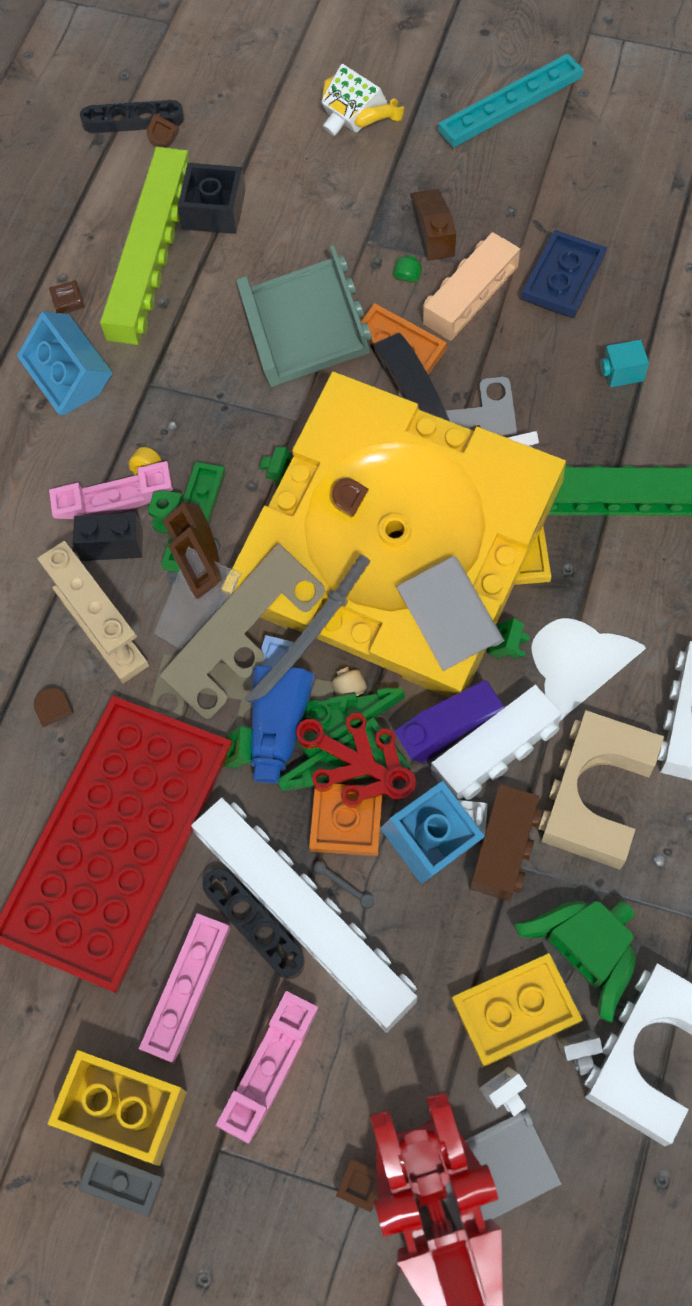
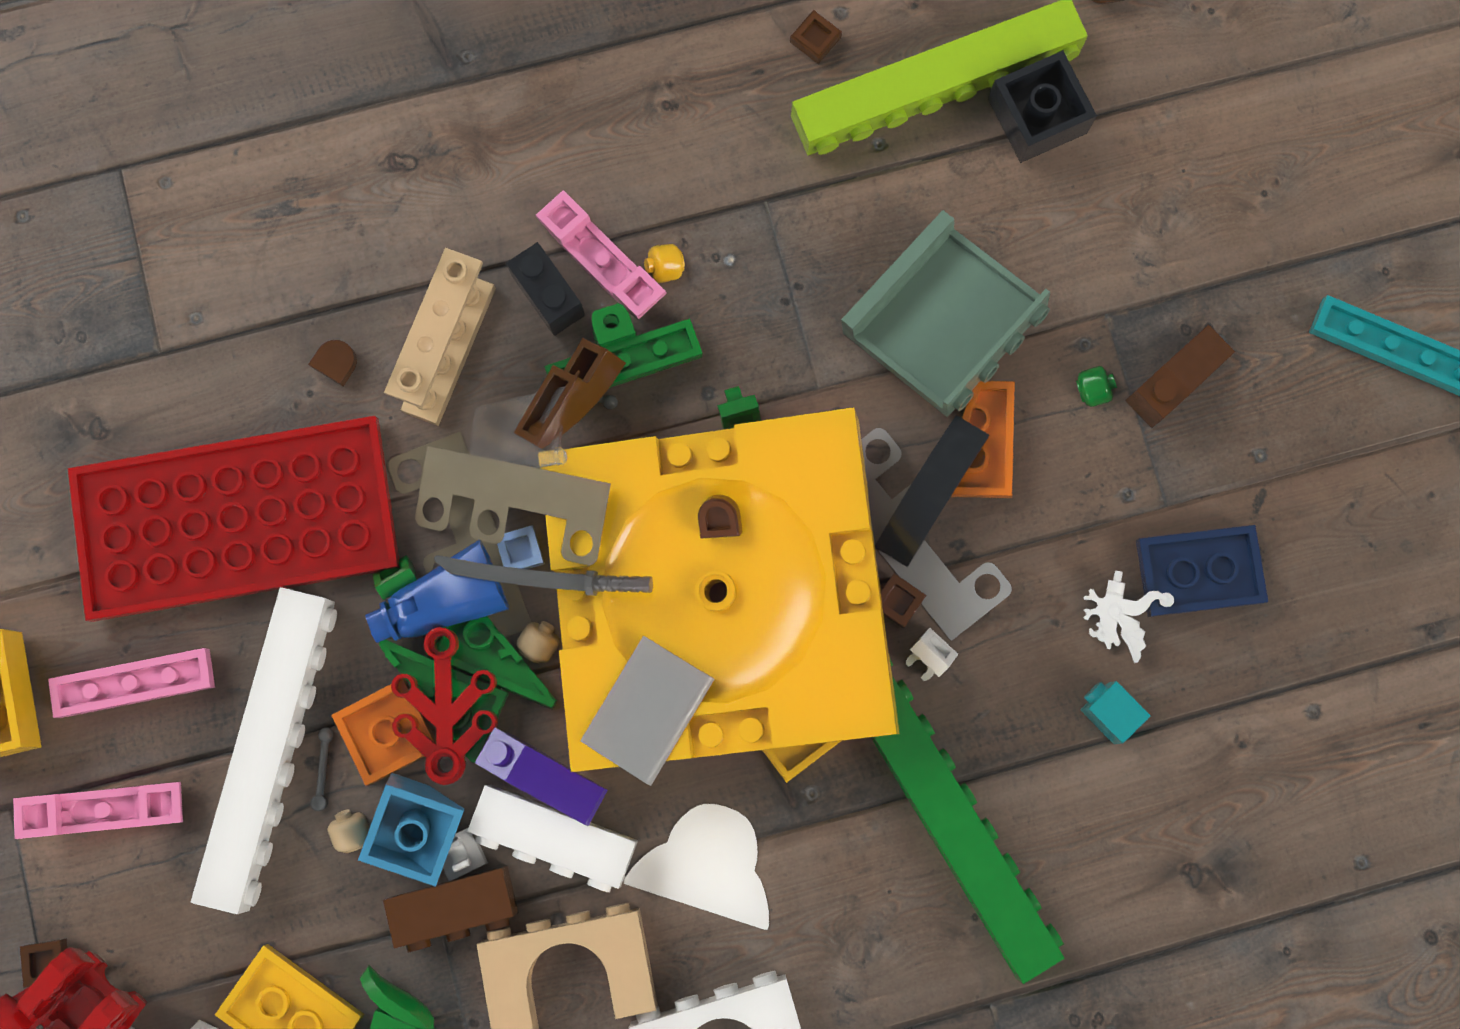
camera: 55 degrees right, 15 degrees up
(63, 362) = (727, 95): dark azure slope -> none
(255, 921) = (225, 704): black beam -> none
(355, 102) = (1292, 177): torso -> none
(402, 892) = (348, 831): none -> tan piece
(470, 286) = (1113, 474): light nougat brick -> none
(512, 635) = (679, 779): green tile -> none
(558, 330) = (1115, 610): none -> white piece

